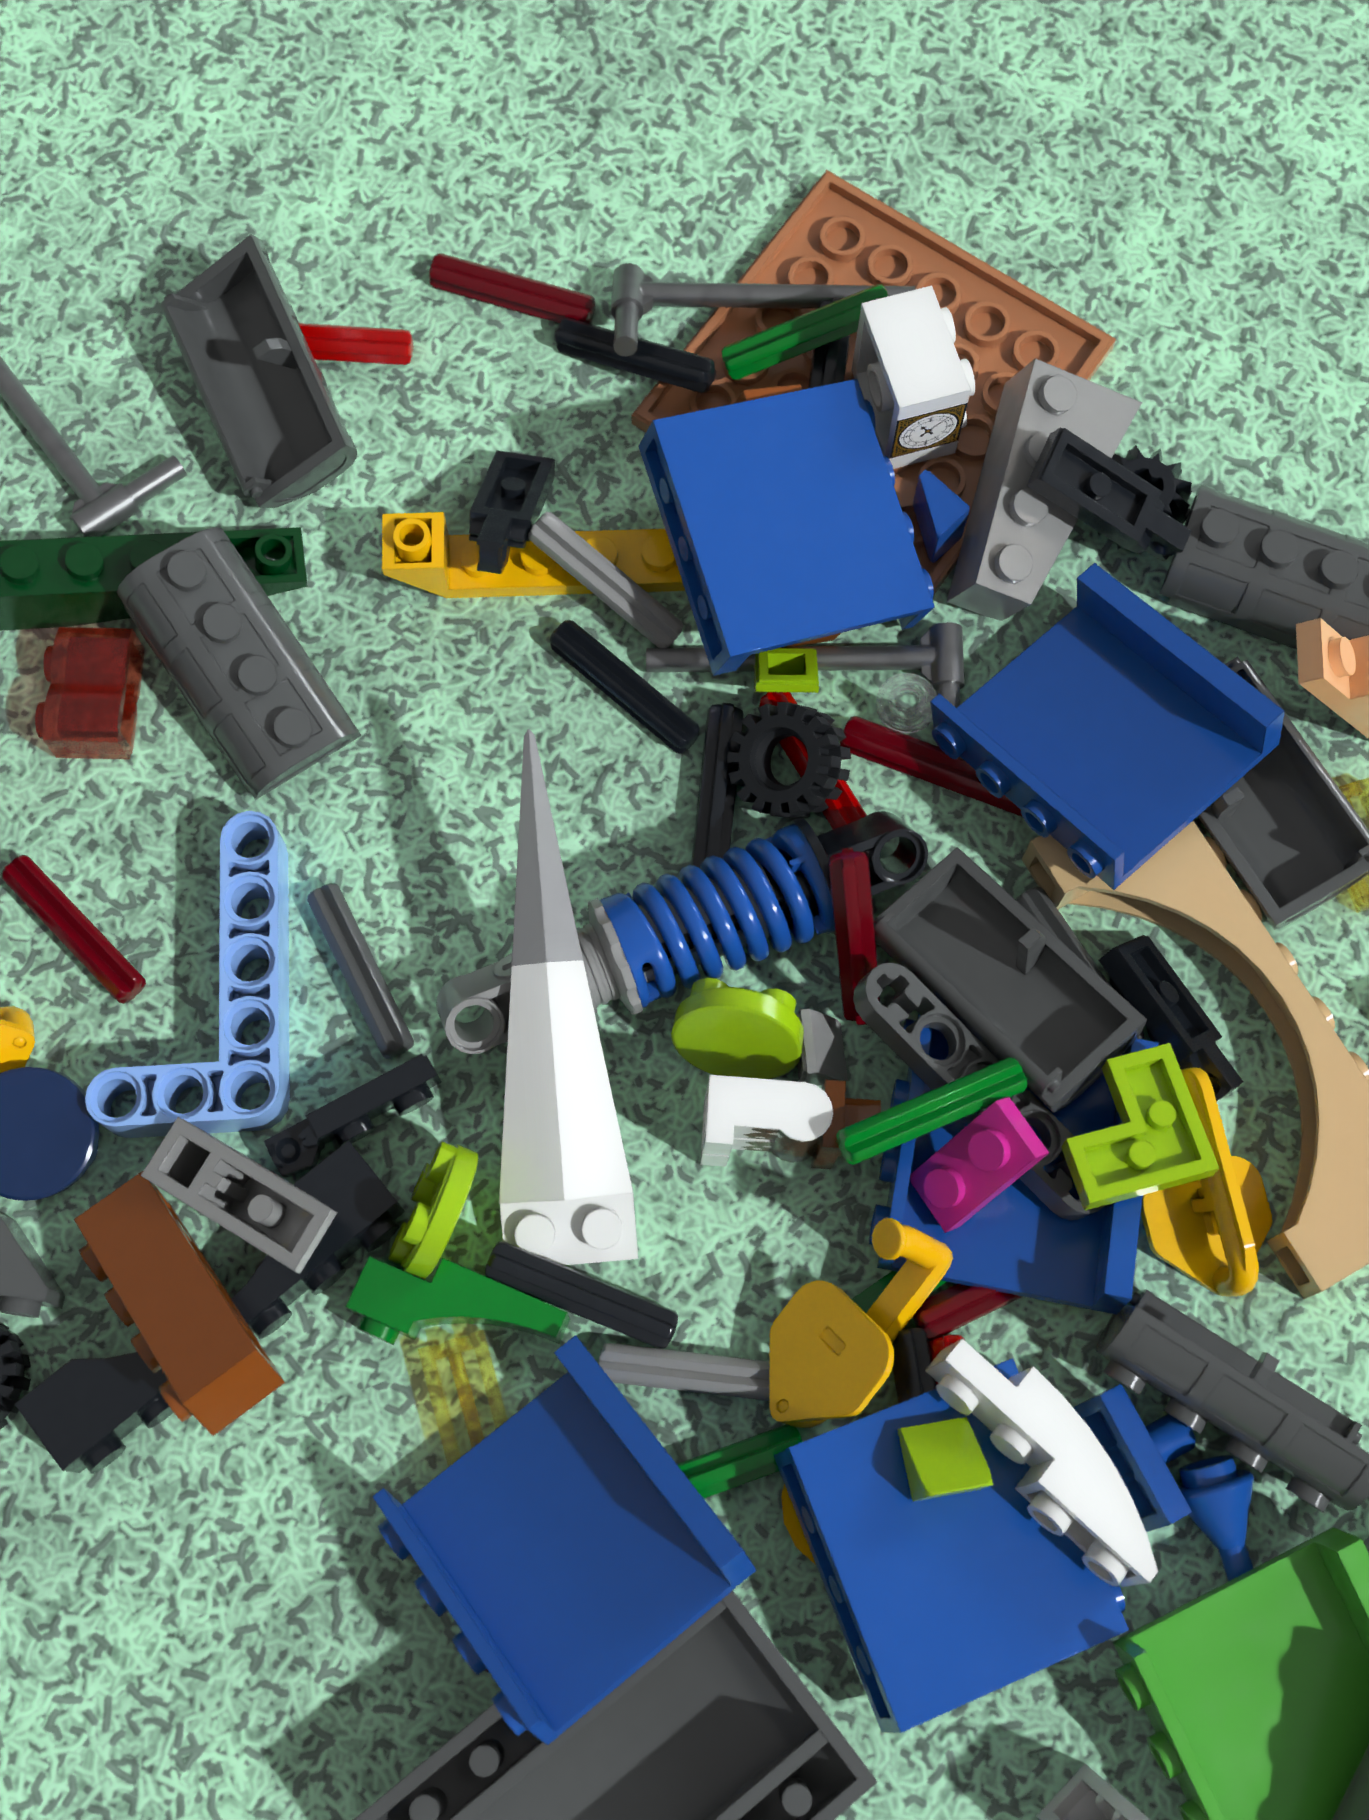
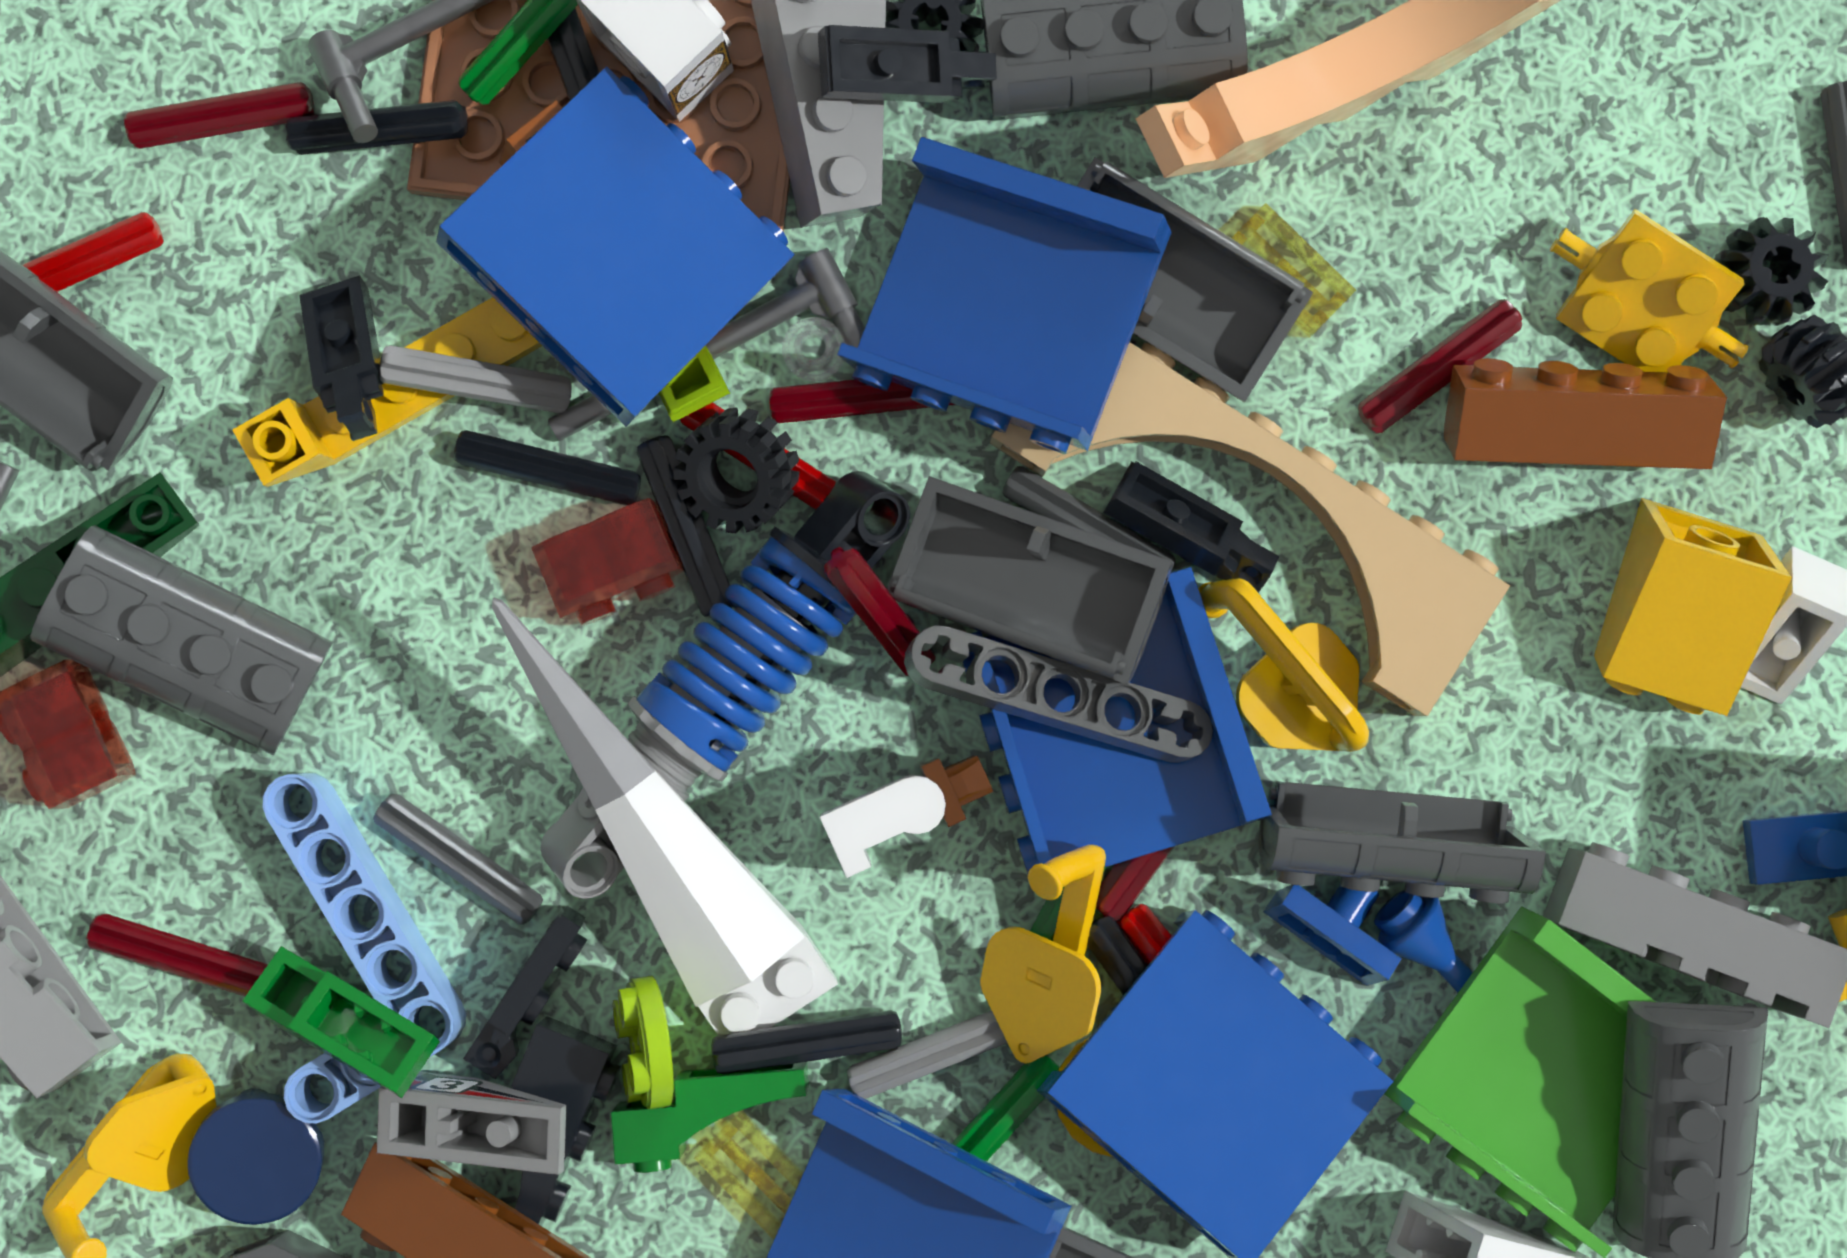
camera: 25 degrees left, 15 degrees up
(179, 1043) = (341, 1021): none -> green slope
(635, 784) = (608, 561): none -> clear red brick
(738, 1030) = (821, 747): lime tile -> none
(821, 1049) = (900, 717): light grey slope -> none
(931, 1110) = (1026, 747): green axle -> none
(939, 515) = (753, 151): blue slope -> none
(943, 1459) = (1179, 1033): lime slope -> none
(977, 1164) = (1087, 765): dark pink plate -> none
(1070, 1477) = (1286, 989): white slope -> none
(1158, 1138) = (1232, 661): lime plate -> none

